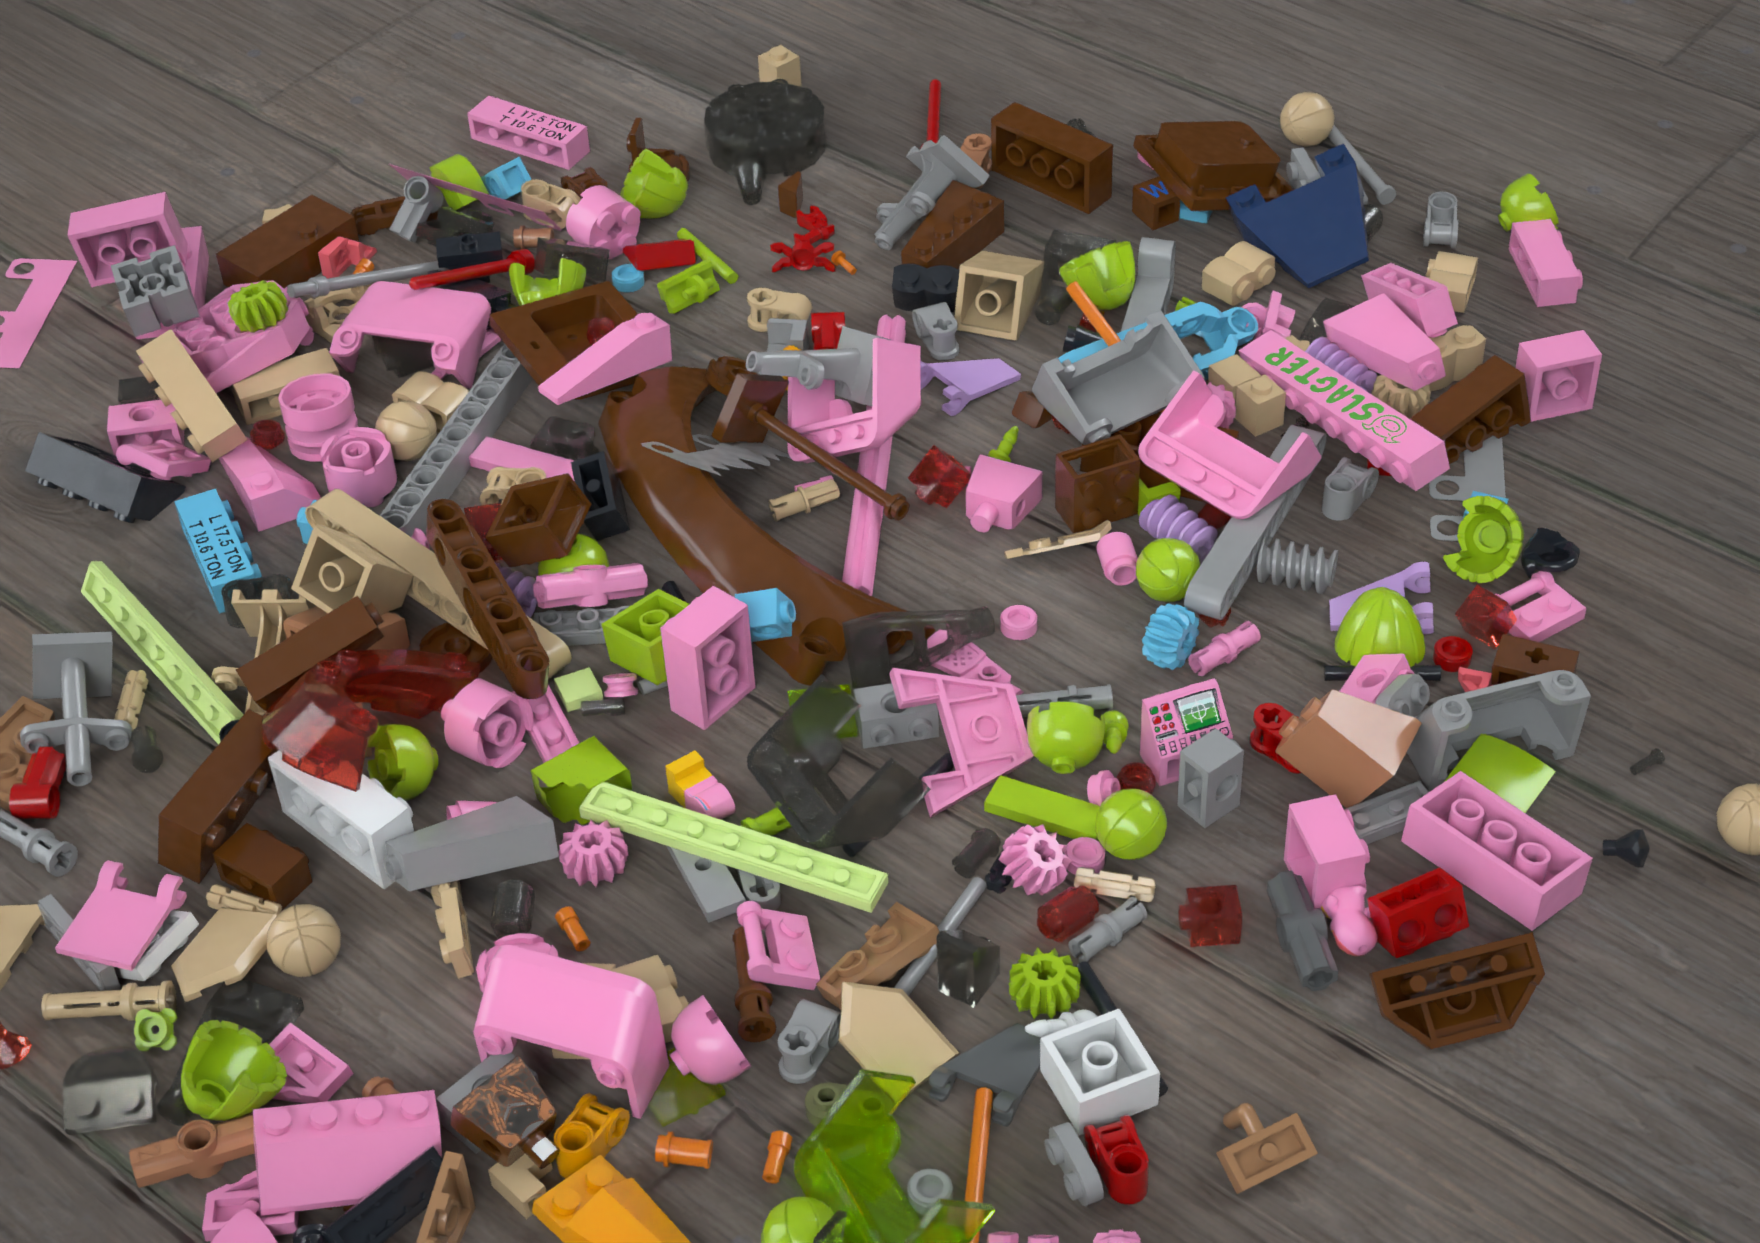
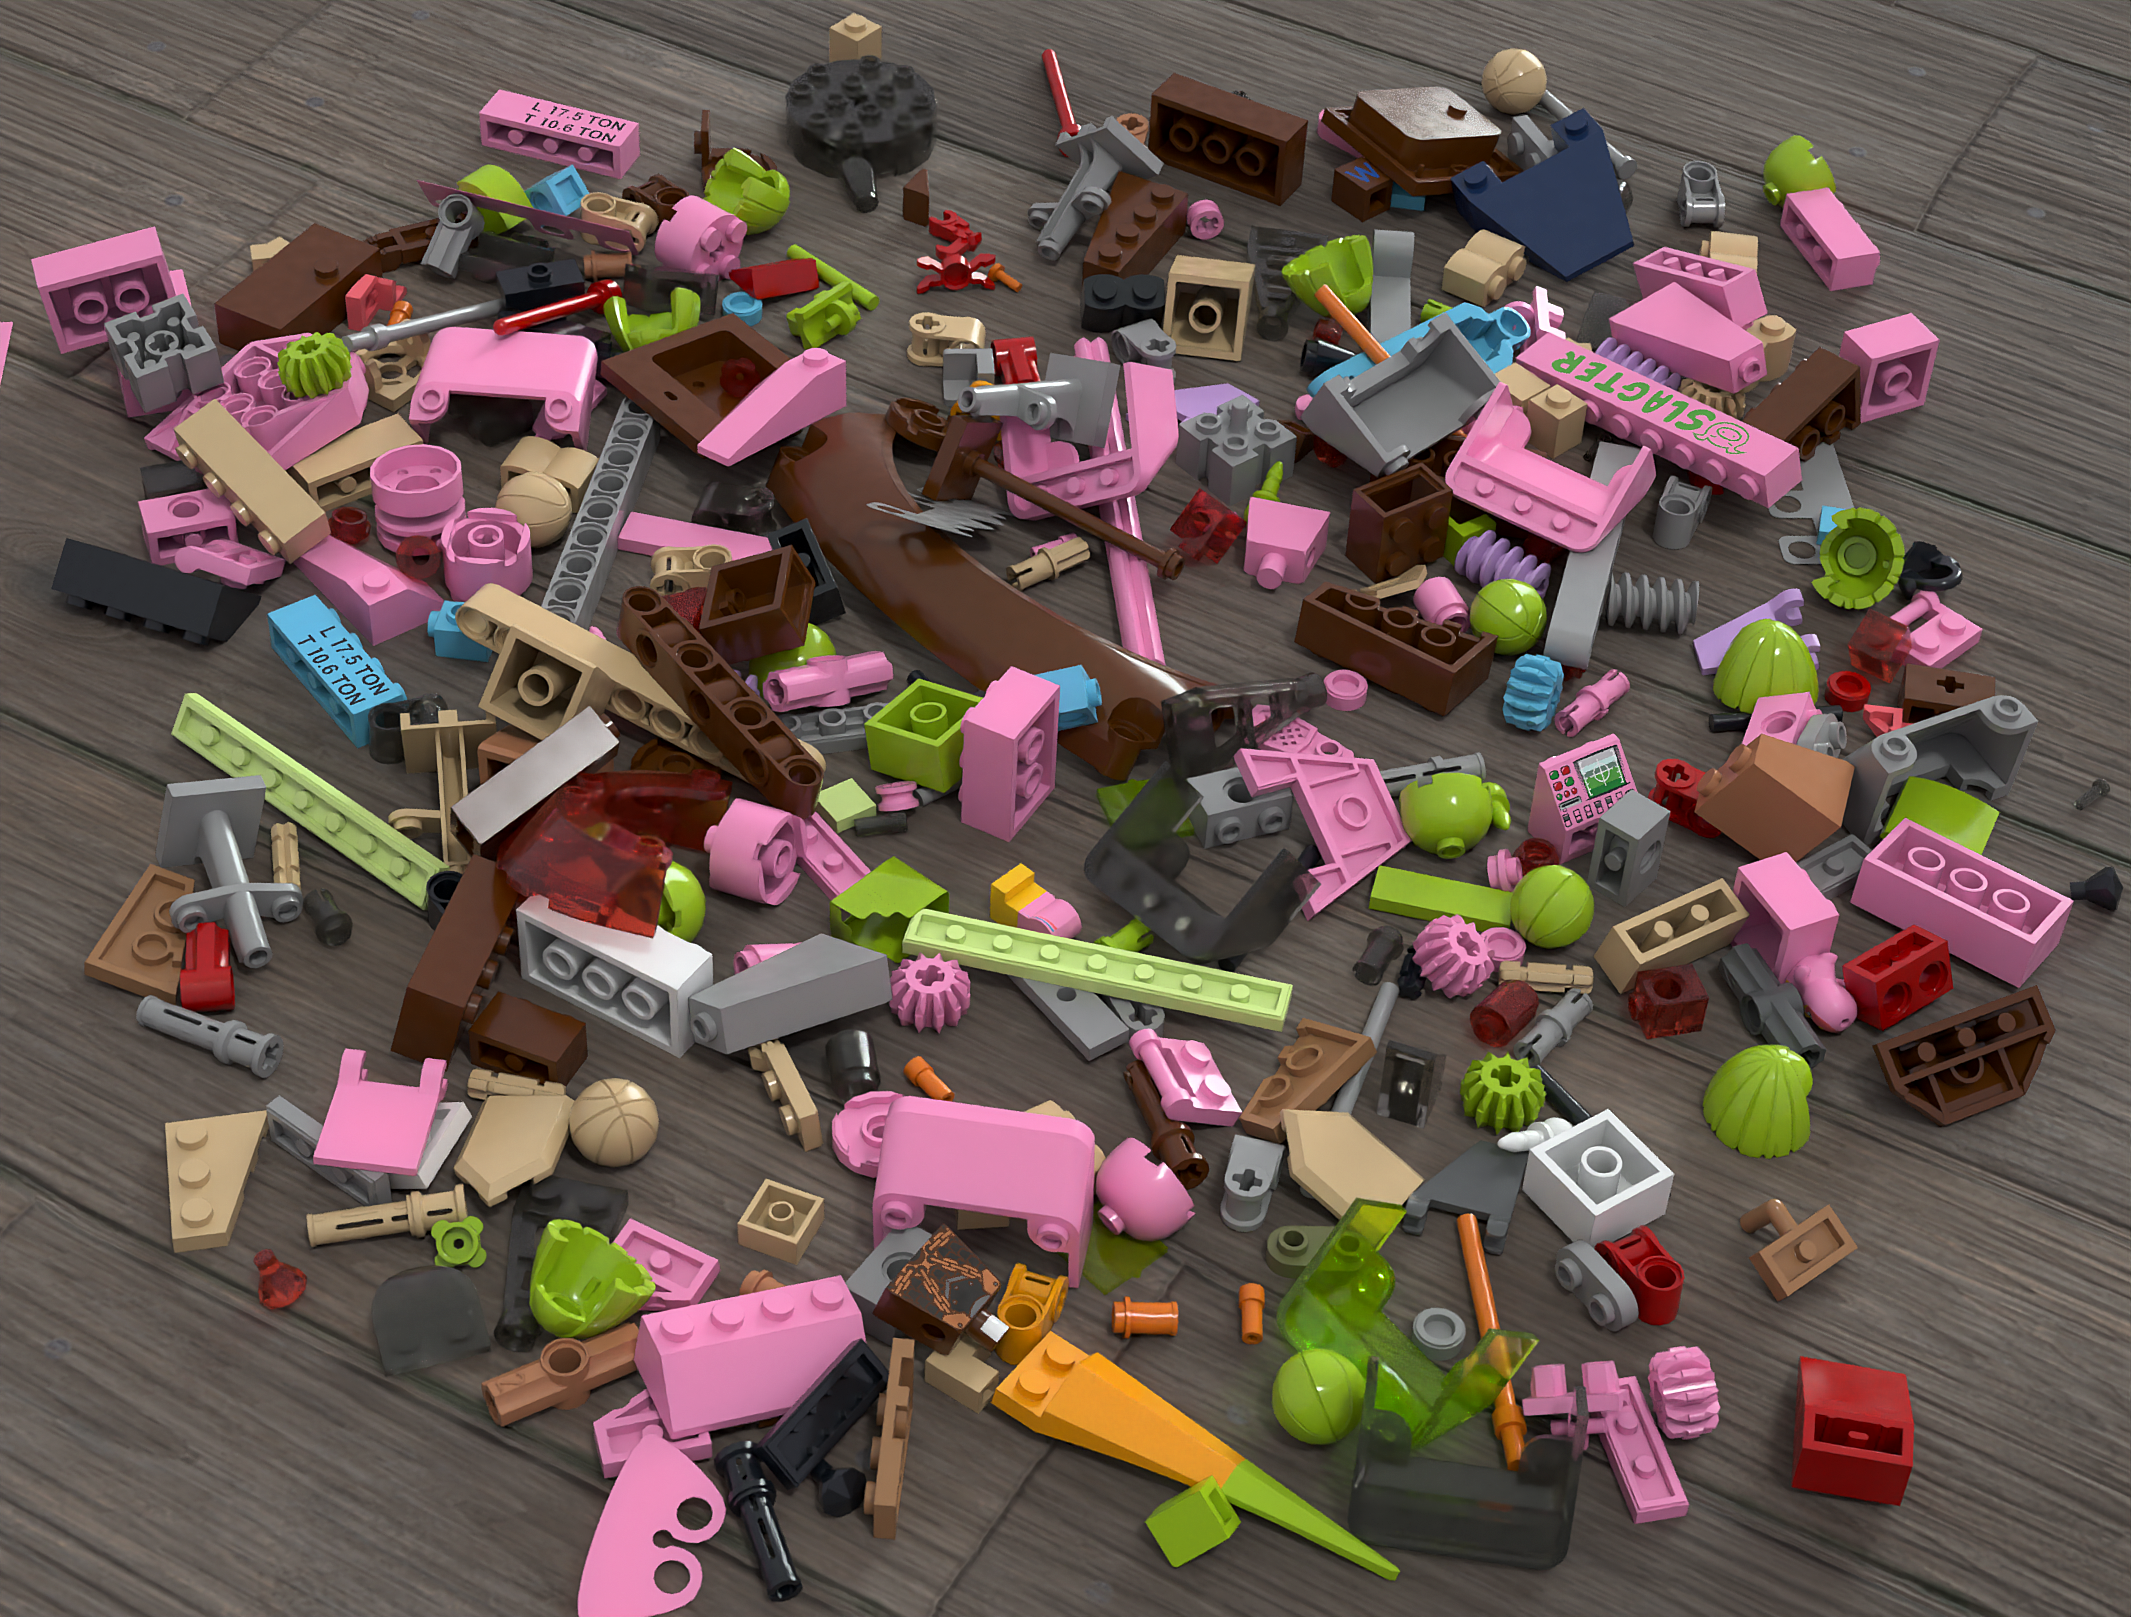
camera: 15 degrees left, 0 degrees up
(297, 463) = (405, 559): none -> clear red brick
(415, 1036) = (781, 1221): none -> tan piece
(983, 413) = (1234, 449): none -> light grey brick
(1016, 230) = (1198, 227): none -> bright pink bush
(1066, 590) = (1395, 647): none -> reddish brown wedge
(1229, 856) = (1672, 934): none -> tan brick
(1265, 1013) = (1761, 1101): none -> lime hair

